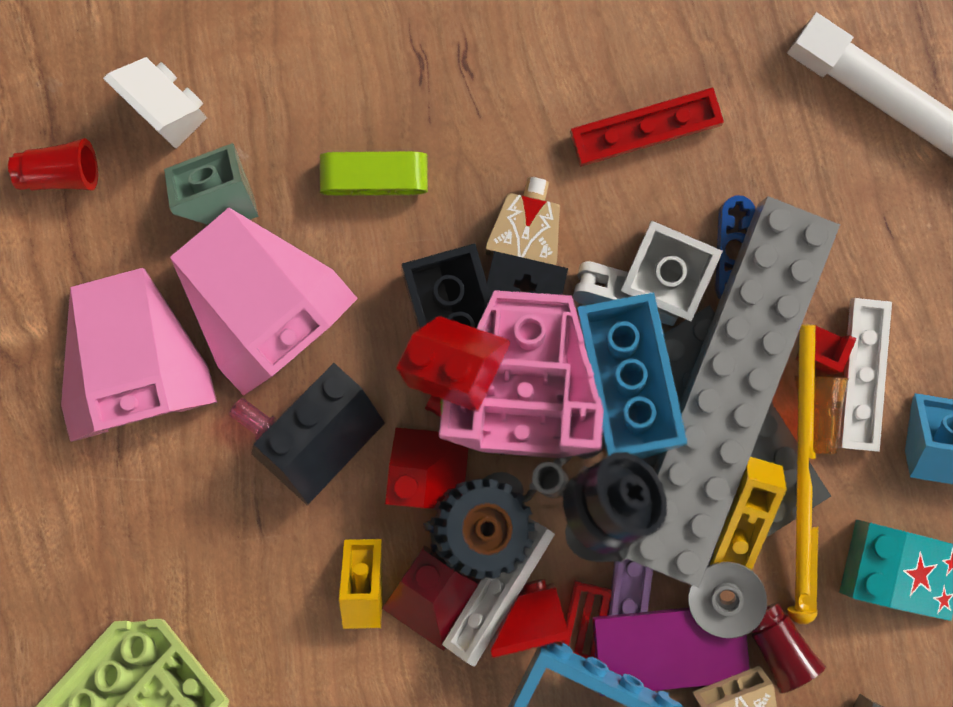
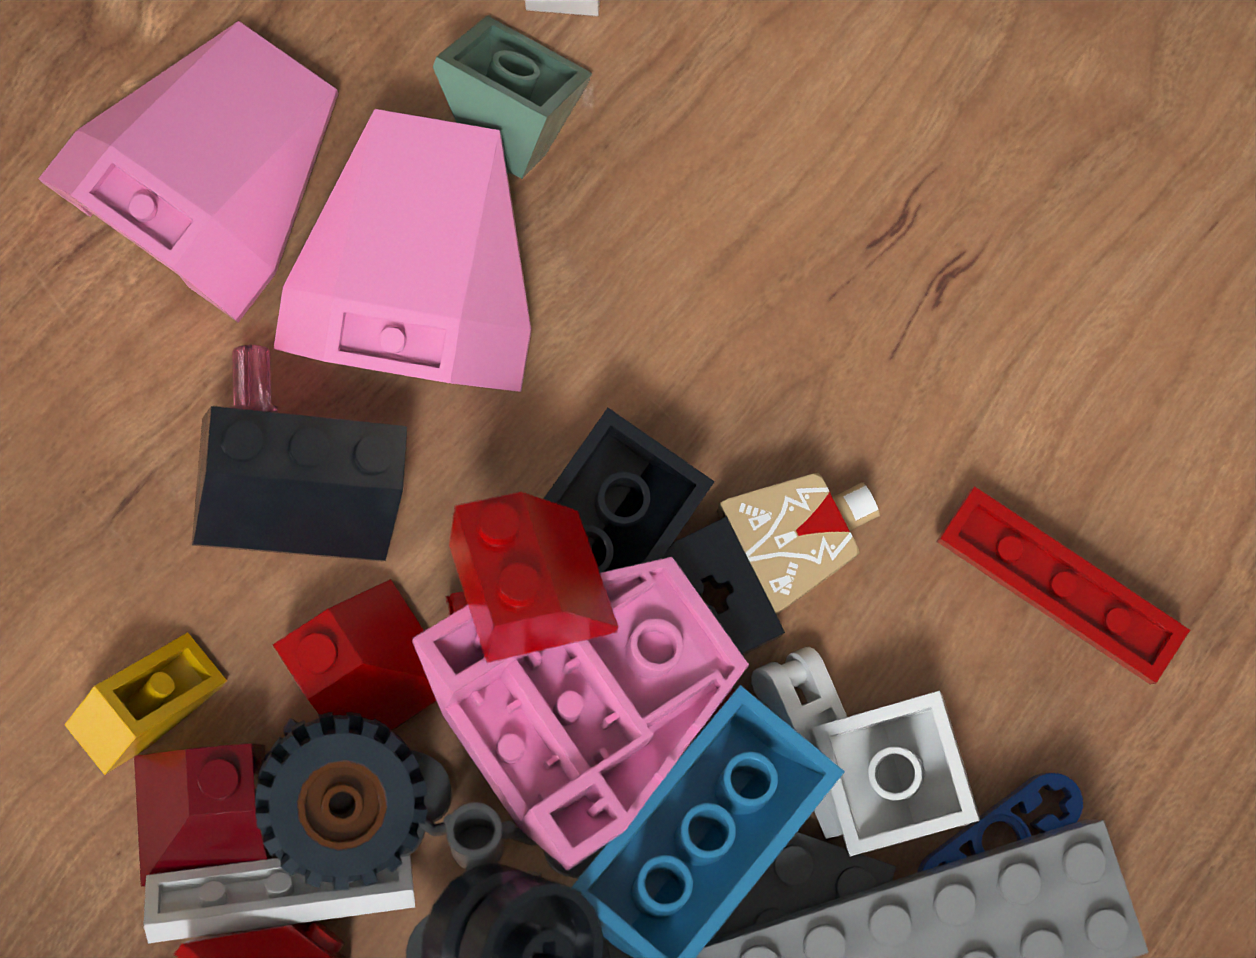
camera: 50 degrees right, 5 degrees down
(373, 173) = (700, 280): lime beam -> none

